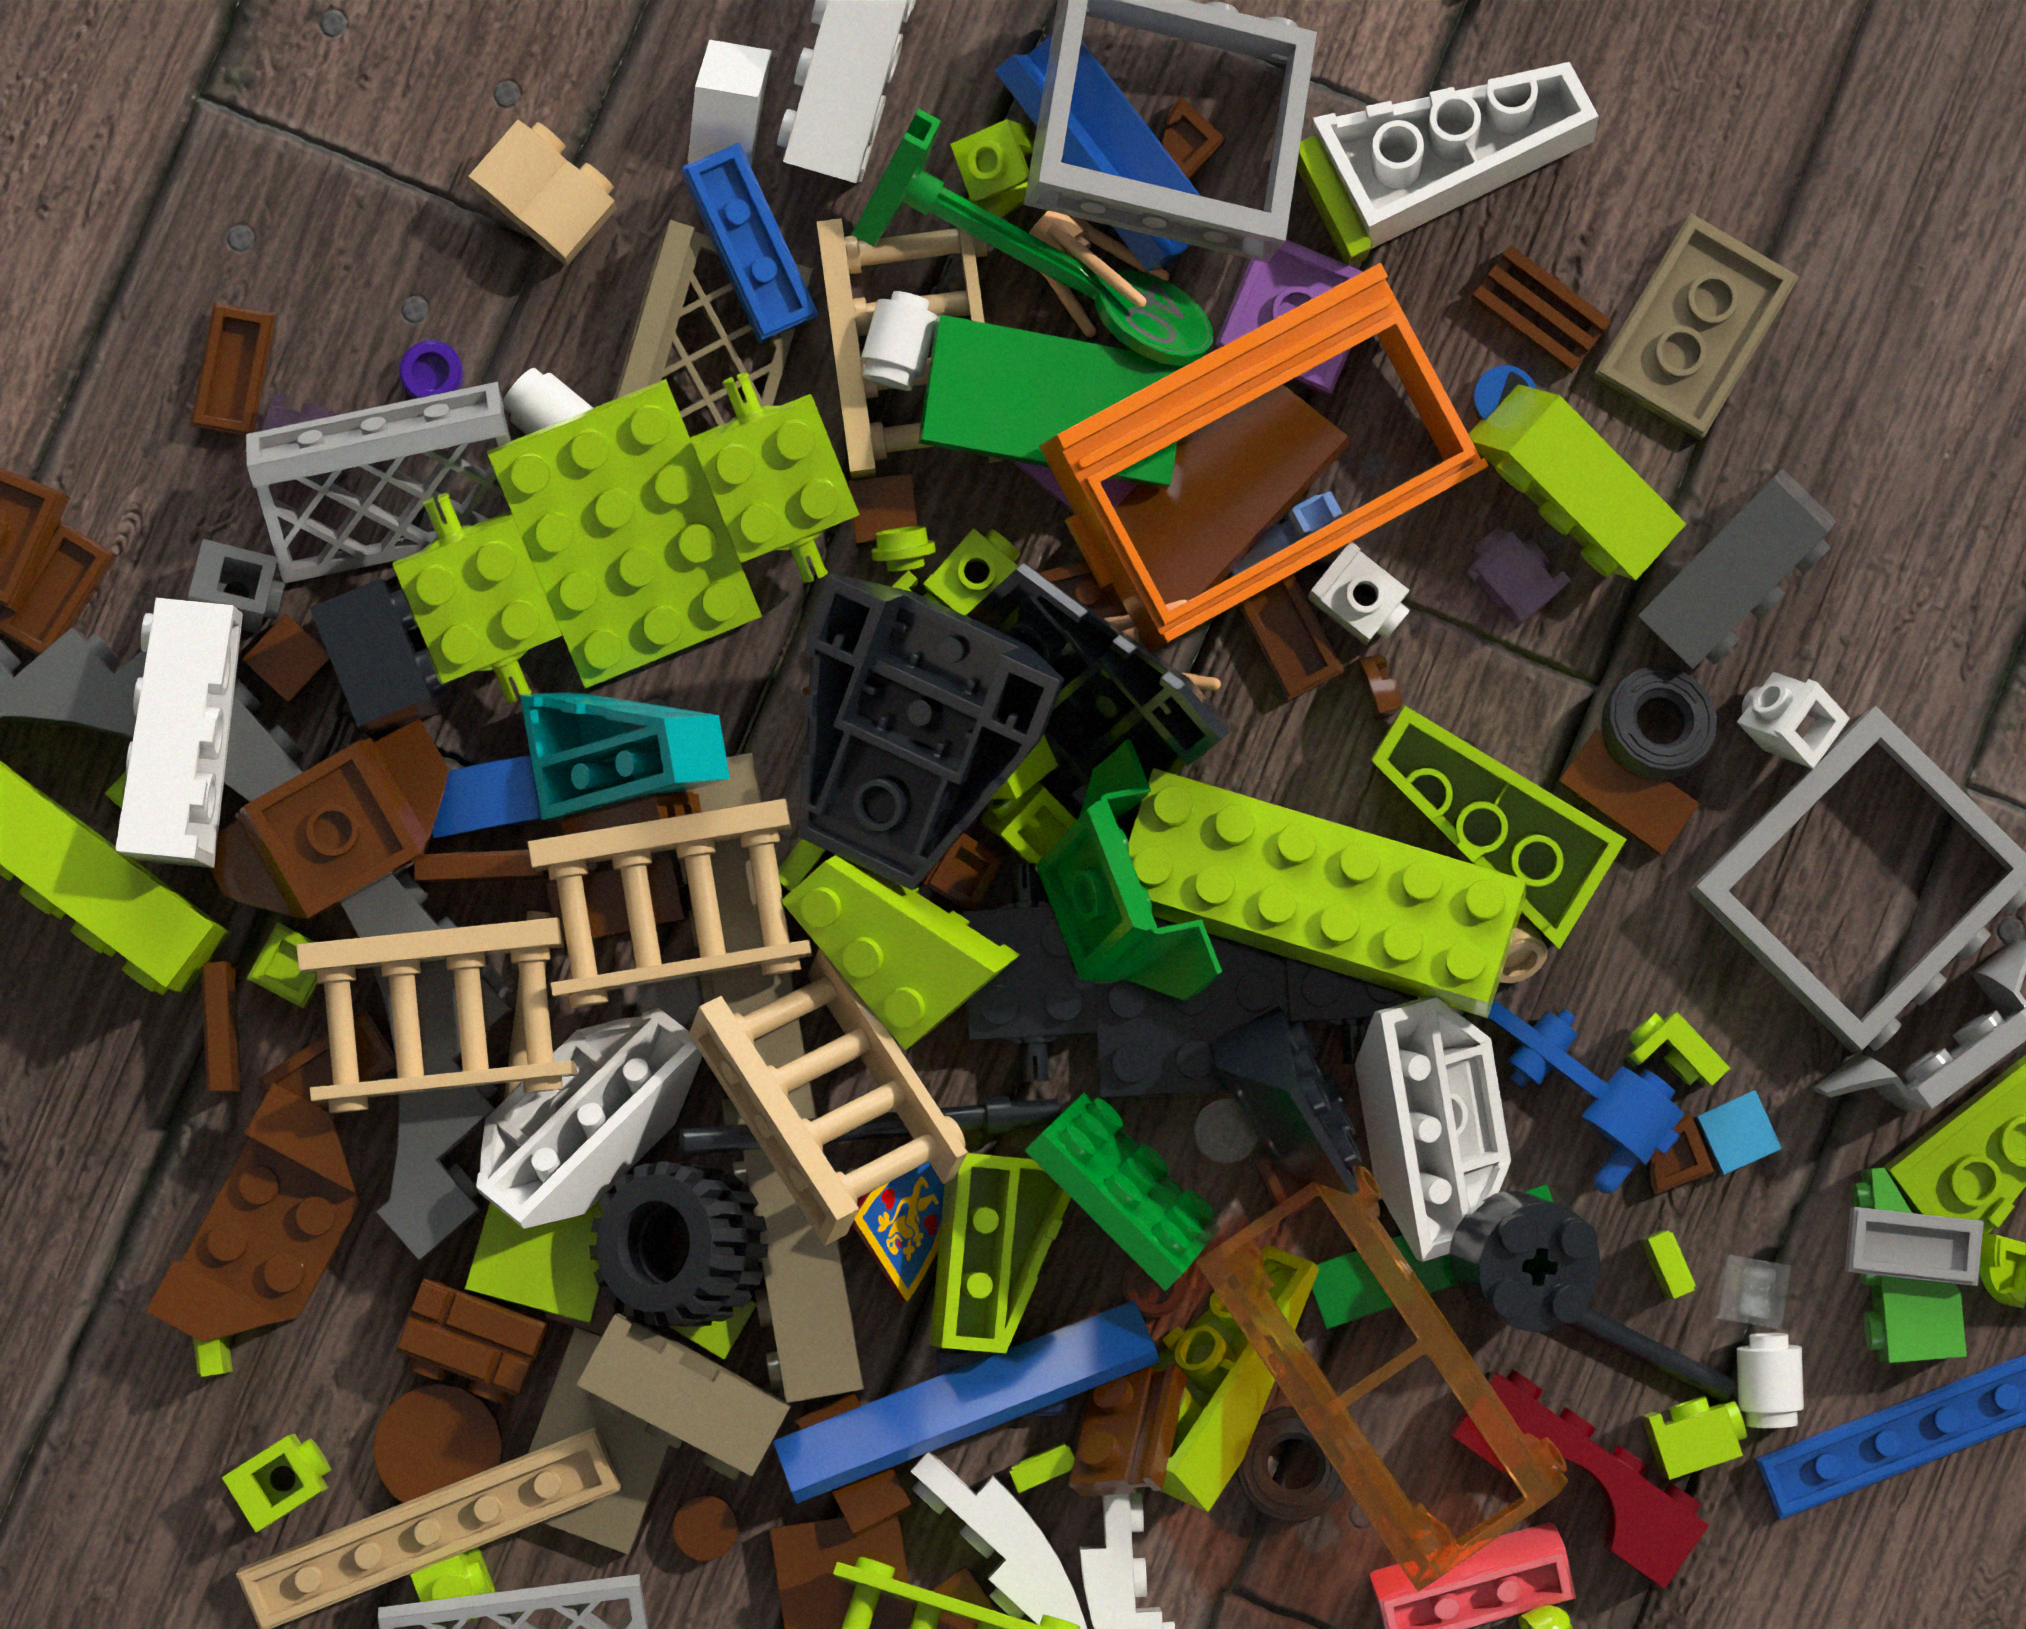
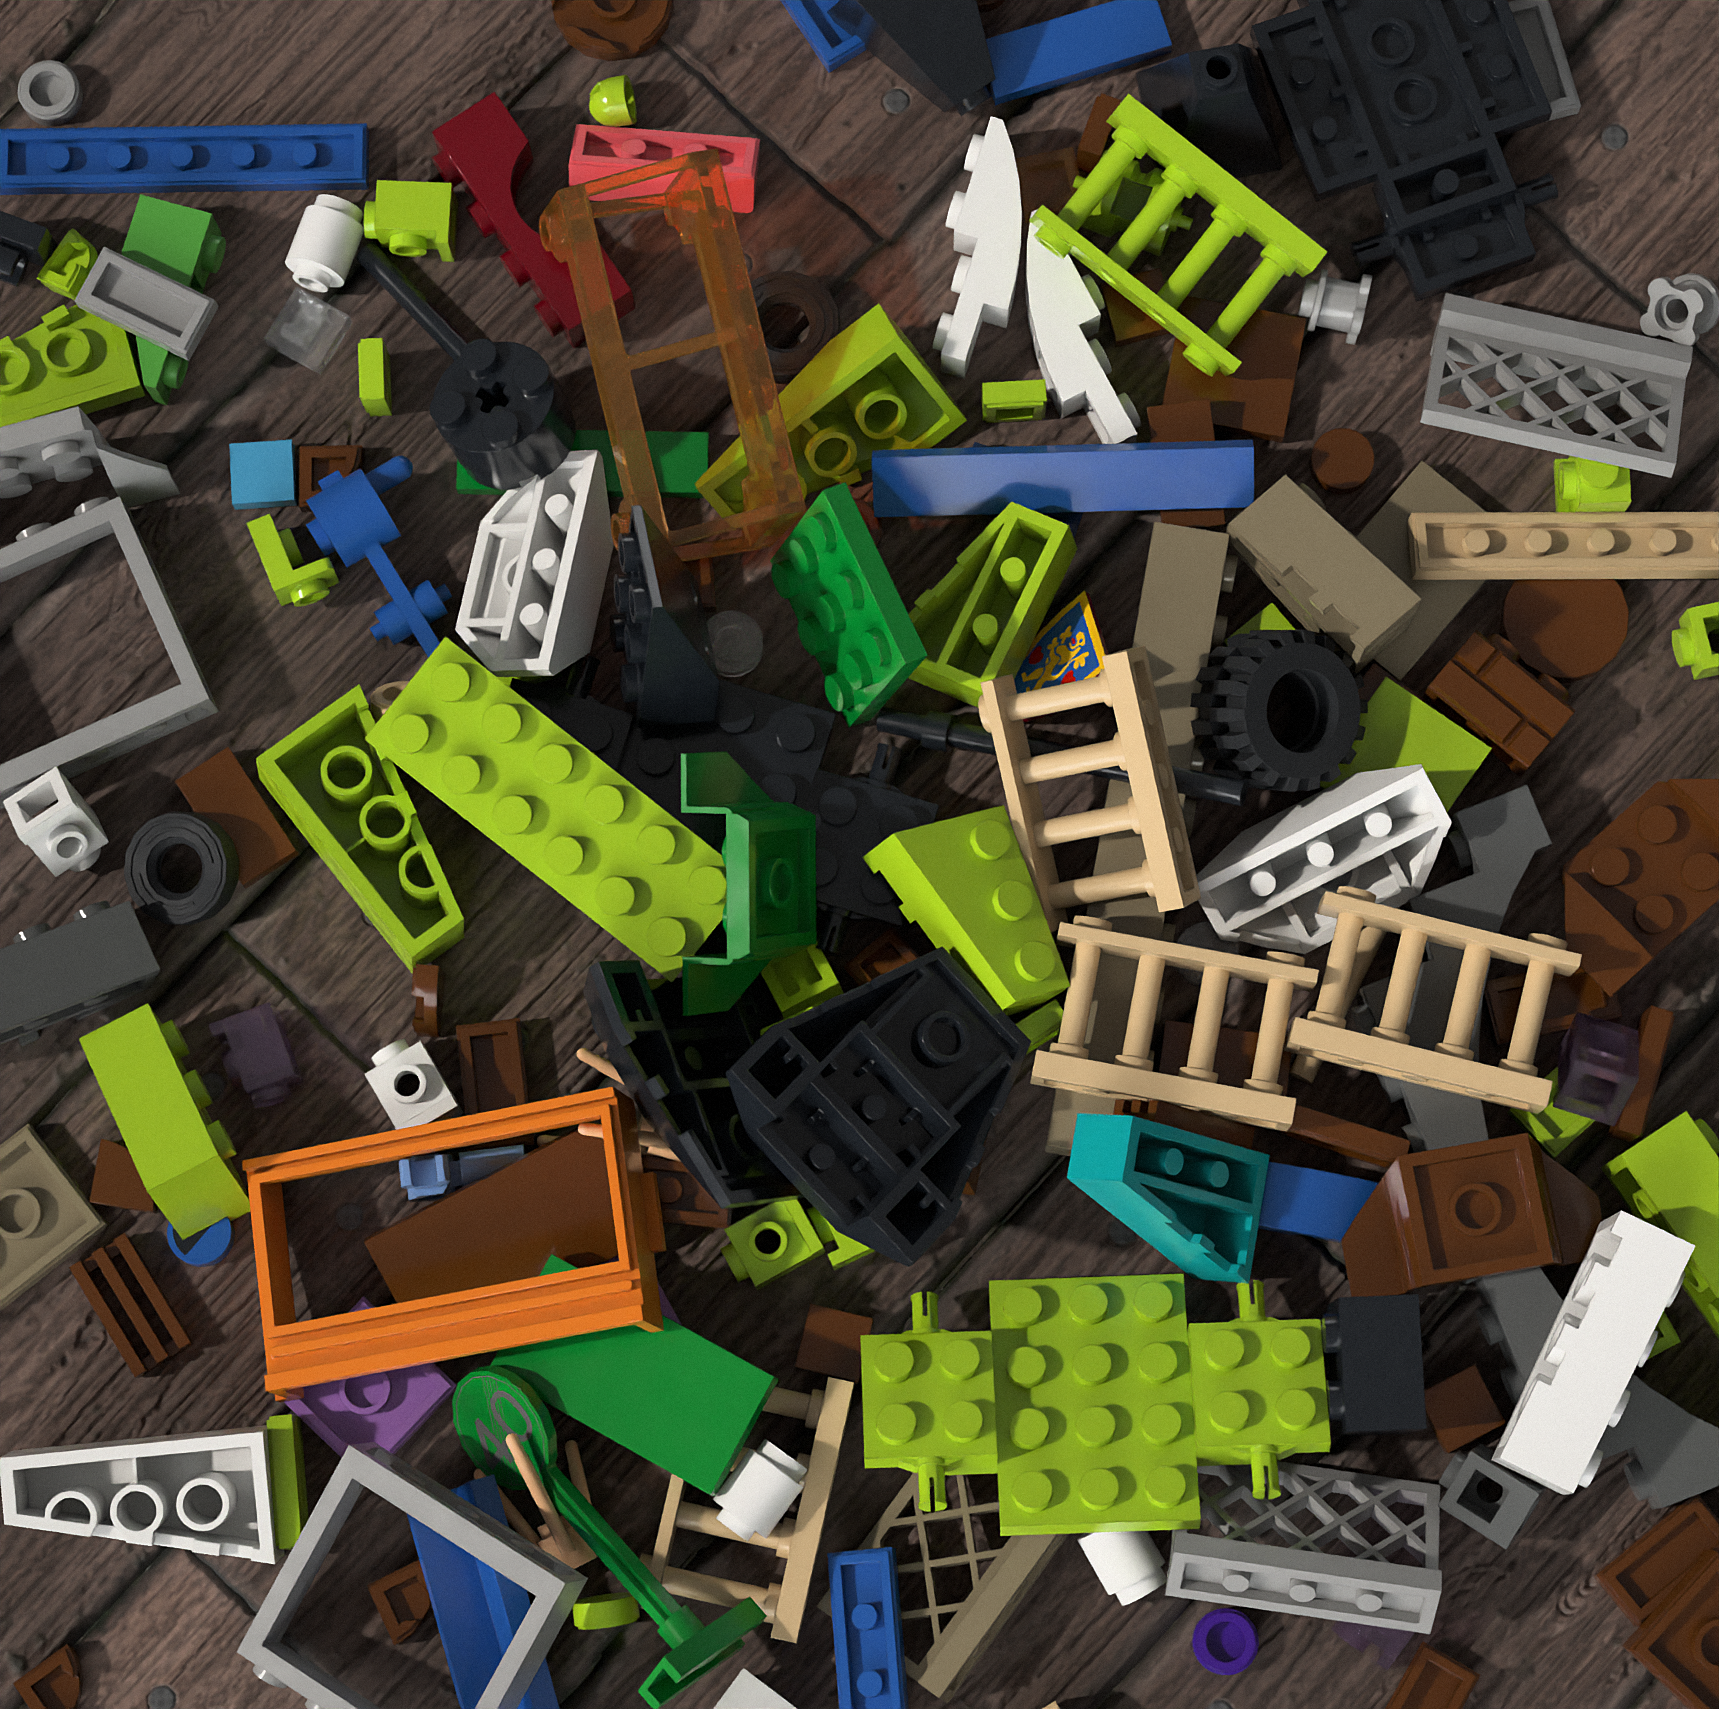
camera: 150 degrees left, 5 degrees down
(264, 1014) = (1596, 1068): none -> brick
(903, 547) = (829, 1292): lime plate -> none
(994, 159) = (600, 1638): lime bracket -> none
(1128, 1433) = (924, 393): reddish brown plate -> none
(1604, 414) = (118, 1181): none -> reddish brown tile

